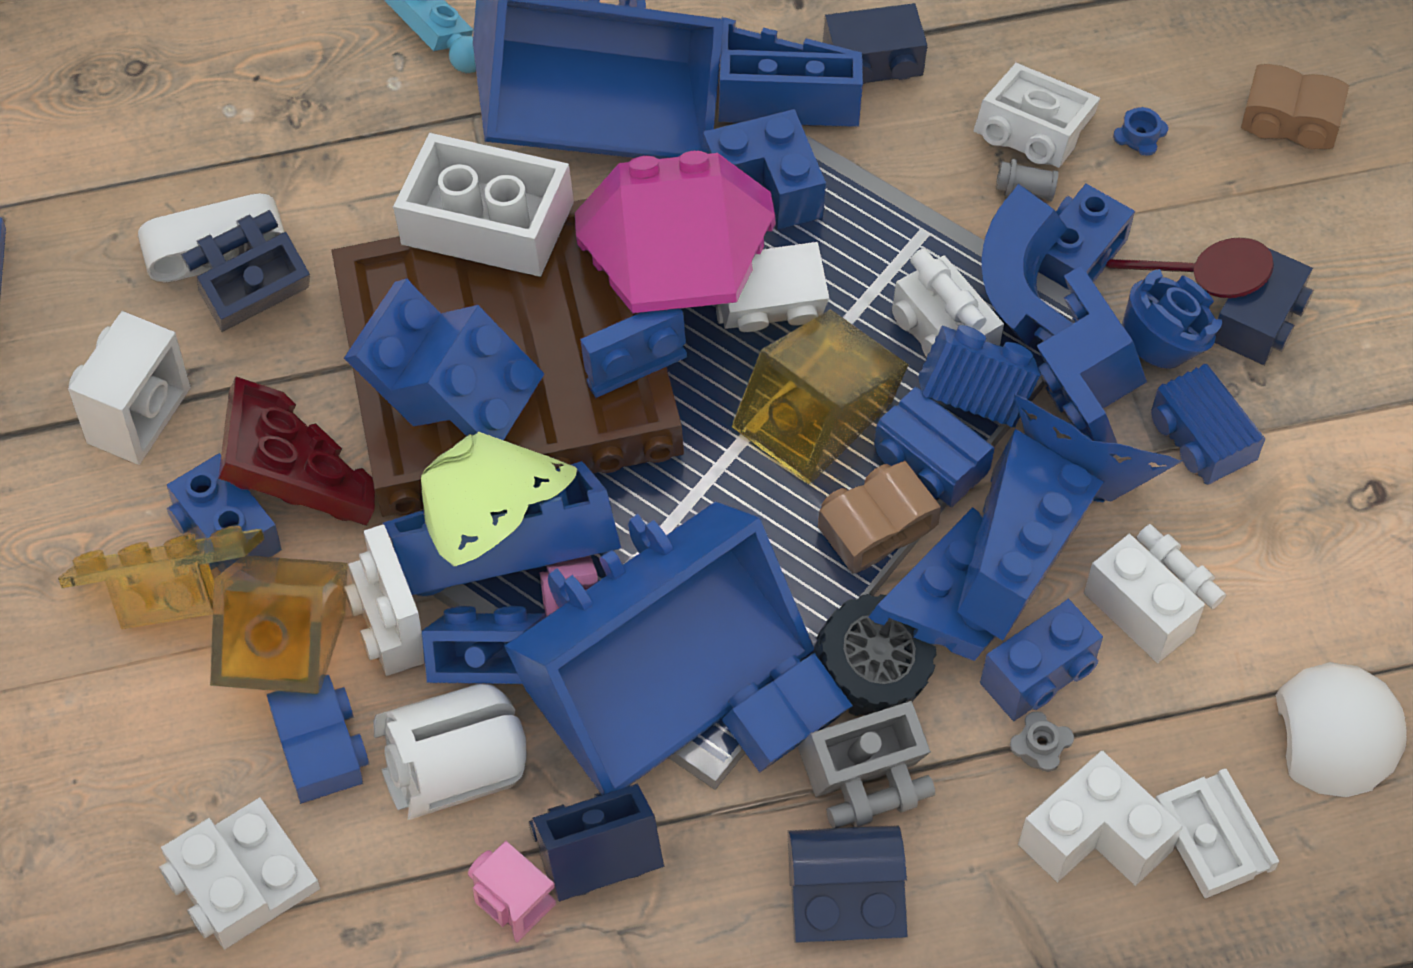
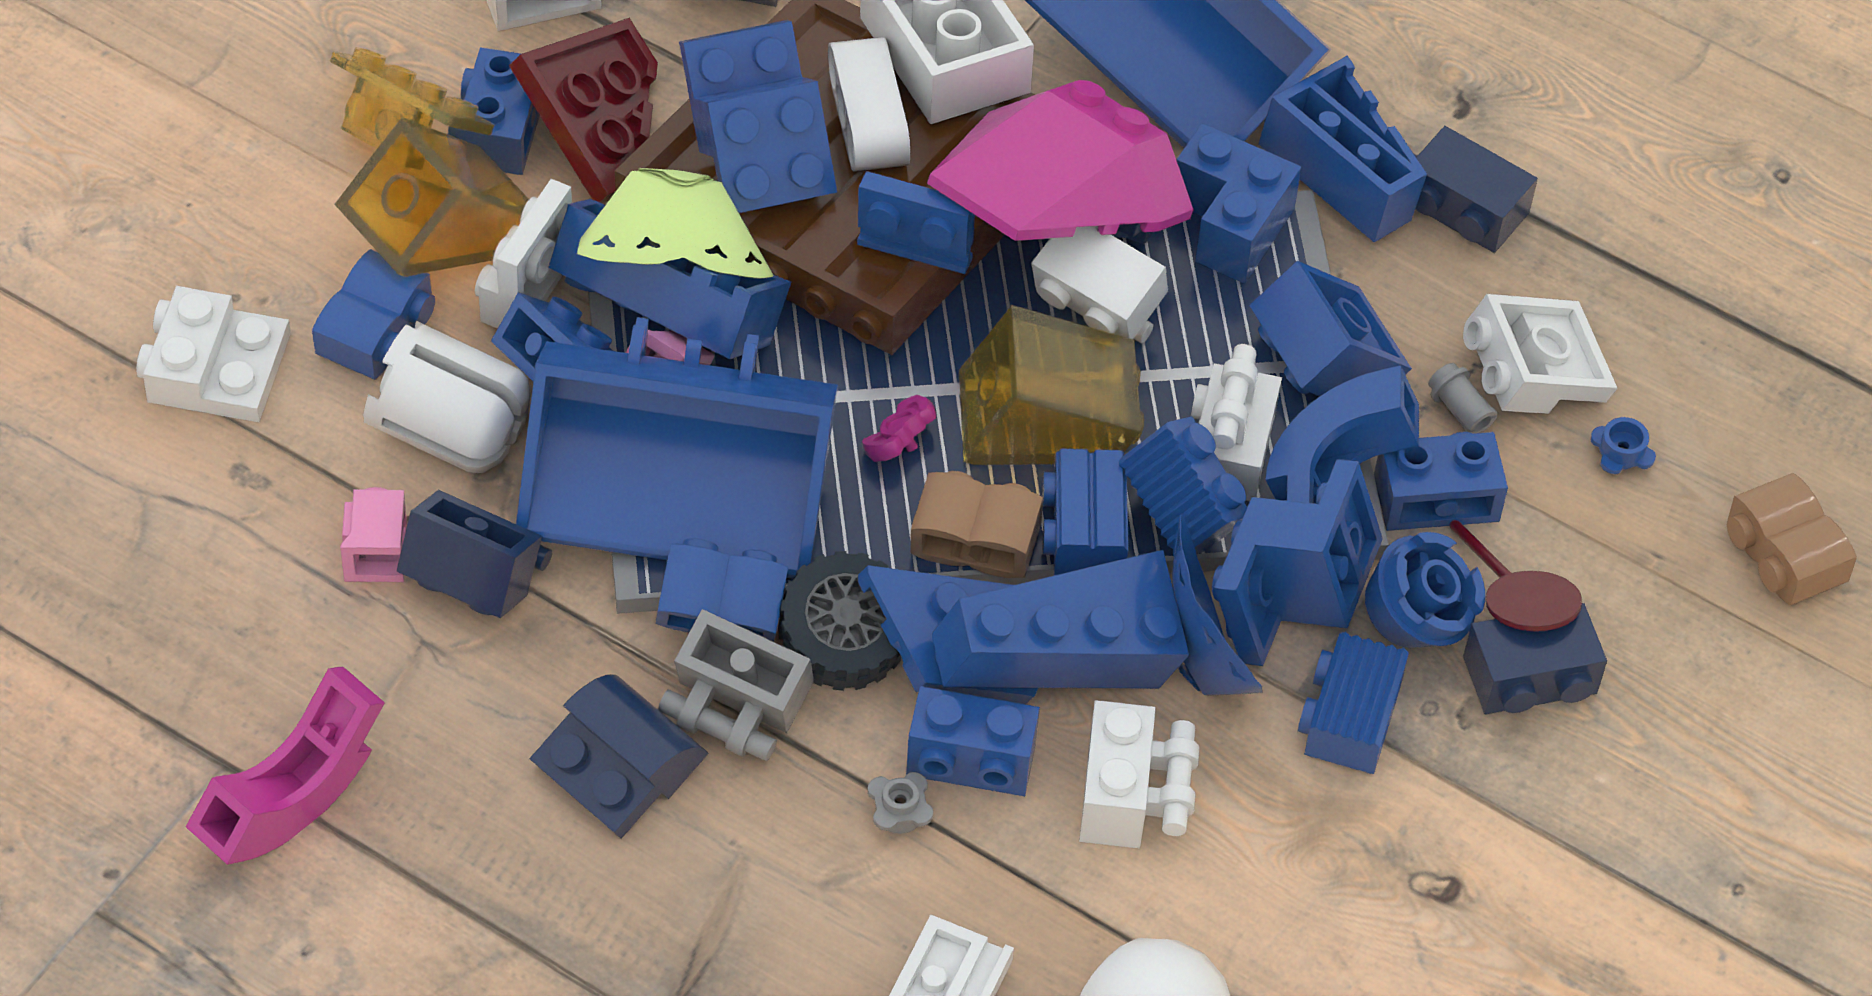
camera: 45 degrees right, 5 degrees down
(513, 301) = (869, 104): none -> white beam
(753, 491) = (899, 429): none -> dark pink piece
(920, 208) = (1323, 330): none -> blue slope
(1102, 812) = (857, 877): white brick -> none

